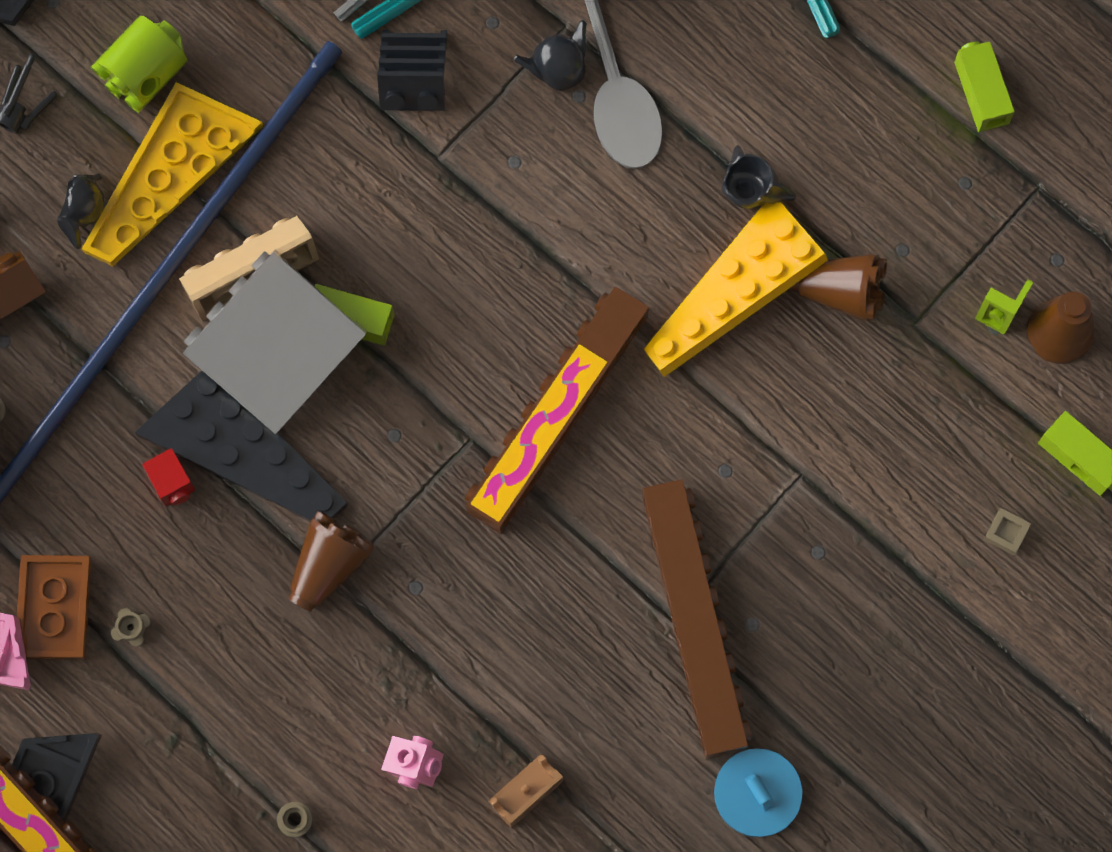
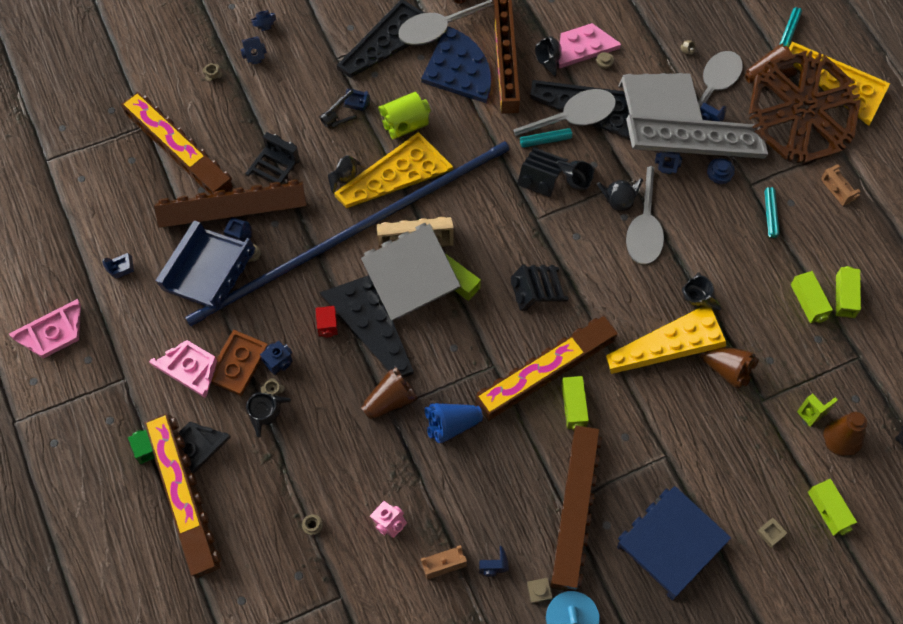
camera: 20 degrees right, 10 degrees down
(48, 65) = (357, 100): none -> dark blue plate
(115, 572) = (277, 357): none -> dark blue brick
(134, 668) = (264, 409): none -> black piece
(442, 560) = (450, 420): none -> blue cone
(474, 284) = (529, 287): none -> black plate
(475, 53) = (577, 174): none -> black piece
(603, 769) = (491, 567): none -> dark blue plate
(625, 449) = (574, 402): none -> lime brick
(690, 772) = (539, 590): none -> dark tan plate
(864, 609) = (673, 541): none -> dark blue panel
(930, 118) = (811, 297): none -> lime brick

